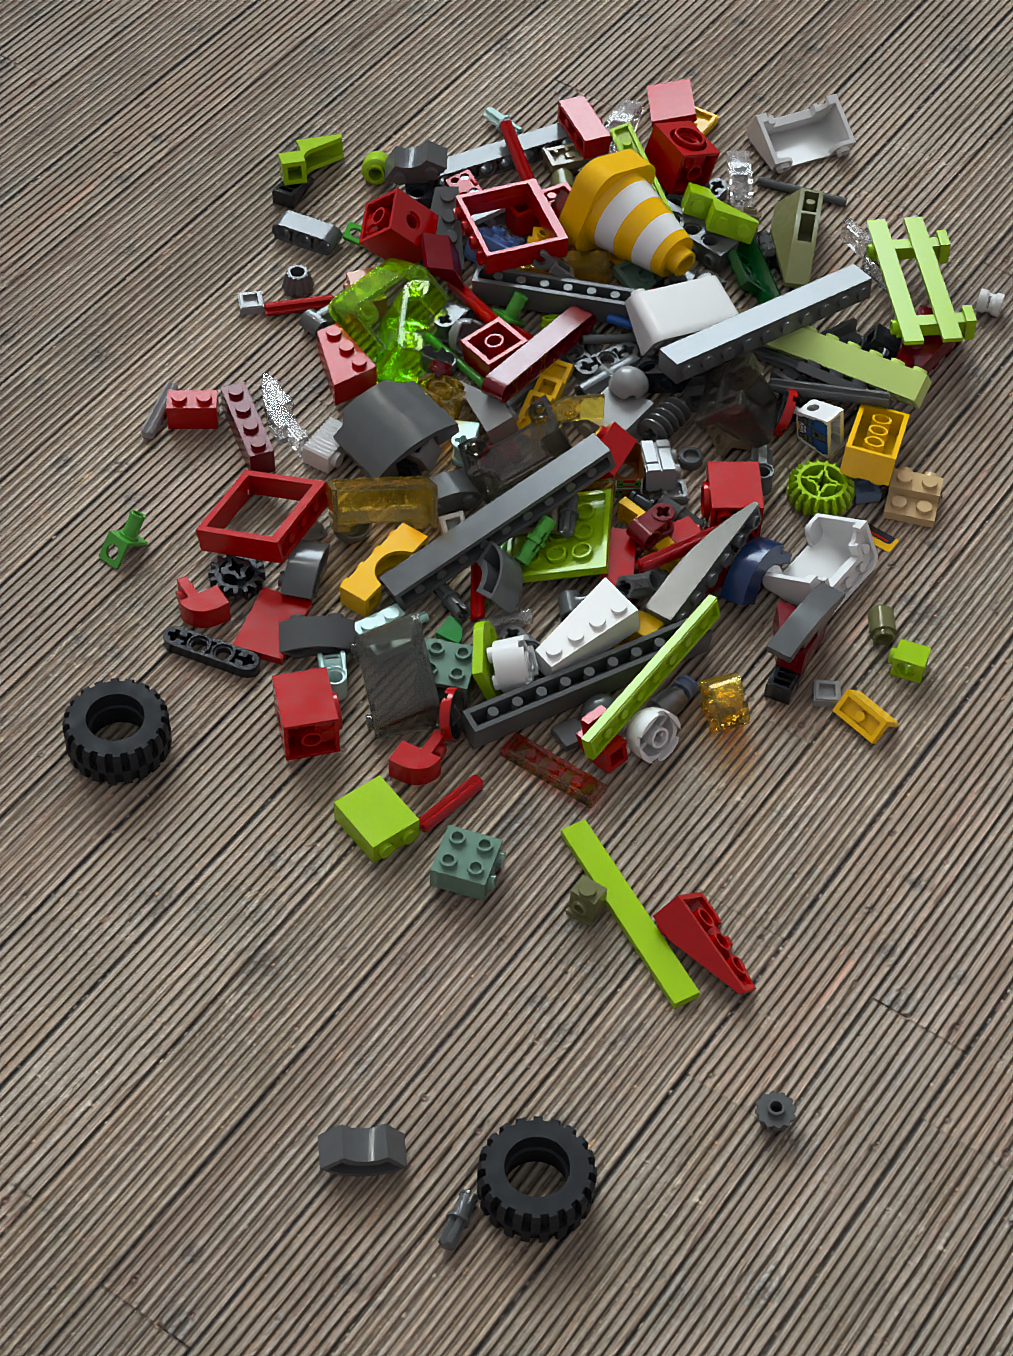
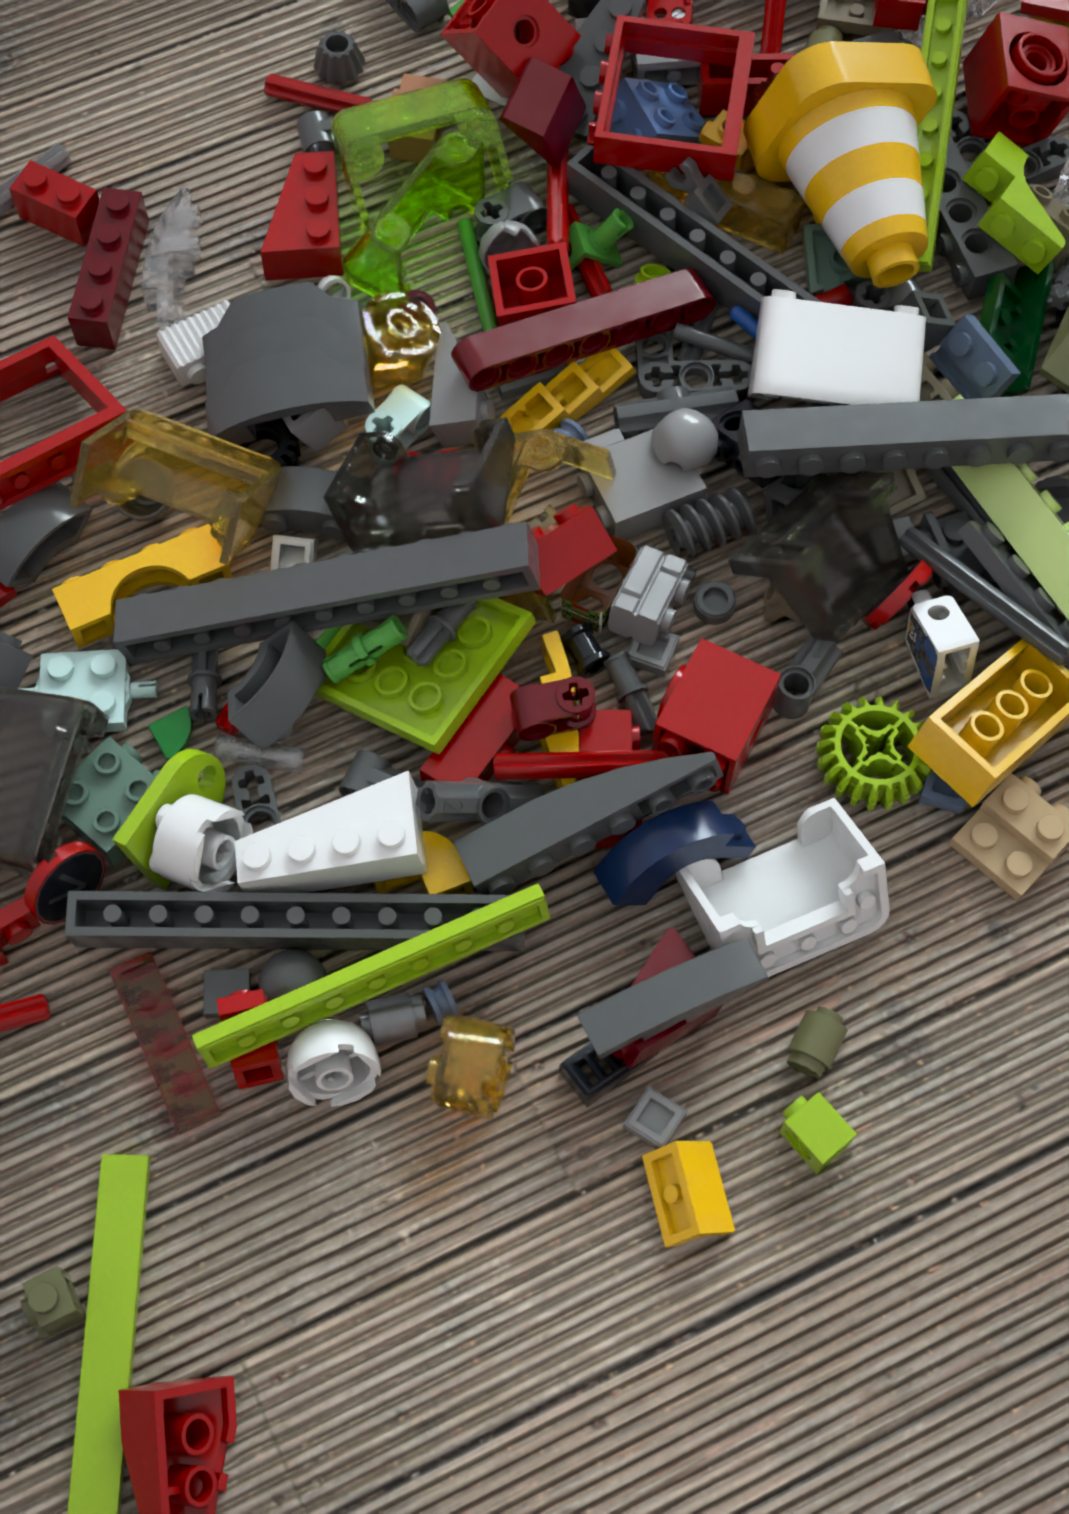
camera: 30 degrees right, 15 degrees up
(250, 303) = (256, 64): light grey tile -> none
(429, 354) = (443, 273): dark grey hair -> none
(439, 367) = (427, 290): dark red plate -> none
(746, 292) = (974, 361): none -> sand blue plate
(882, 539) = (913, 869): sticker -> none

